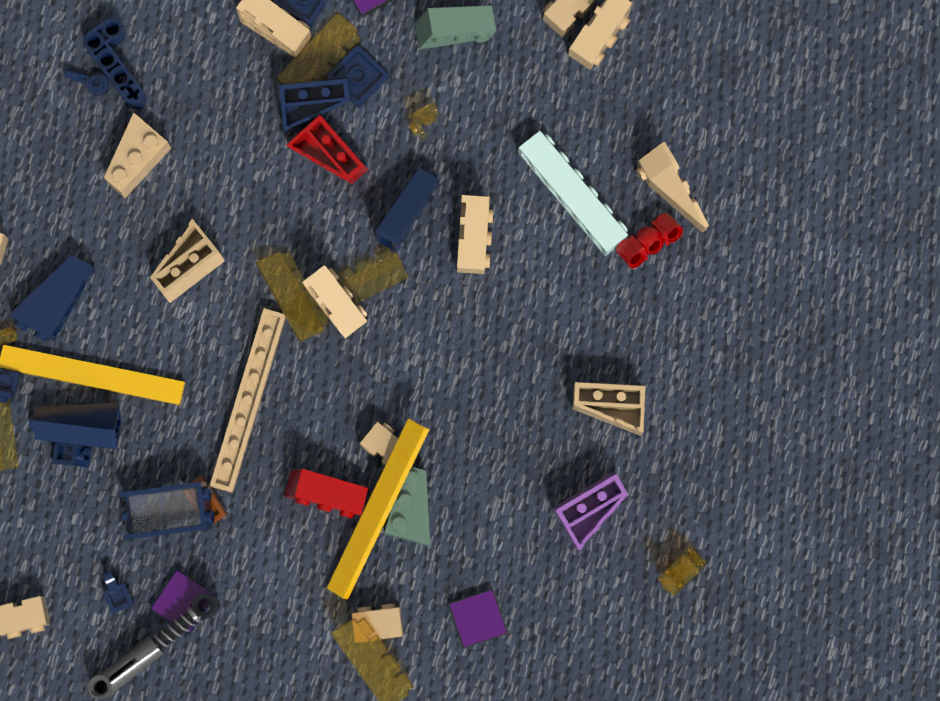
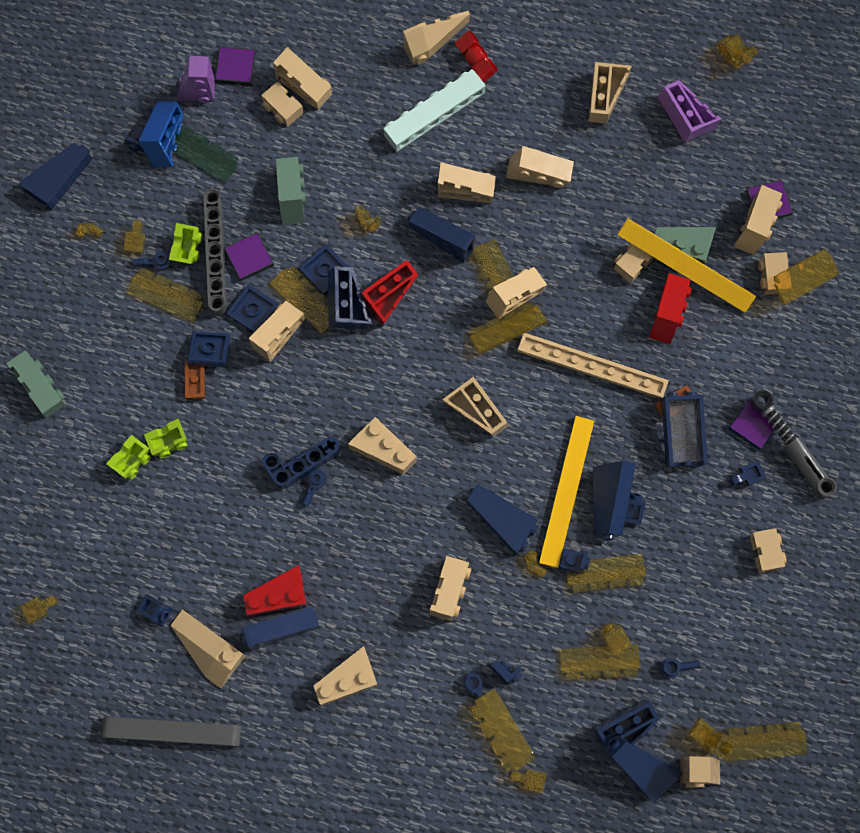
camera: 85 degrees left, 5 degrees down
(447, 602) = (759, 220): none -> tan wedge
(499, 326) = (539, 167): none -> tan wedge

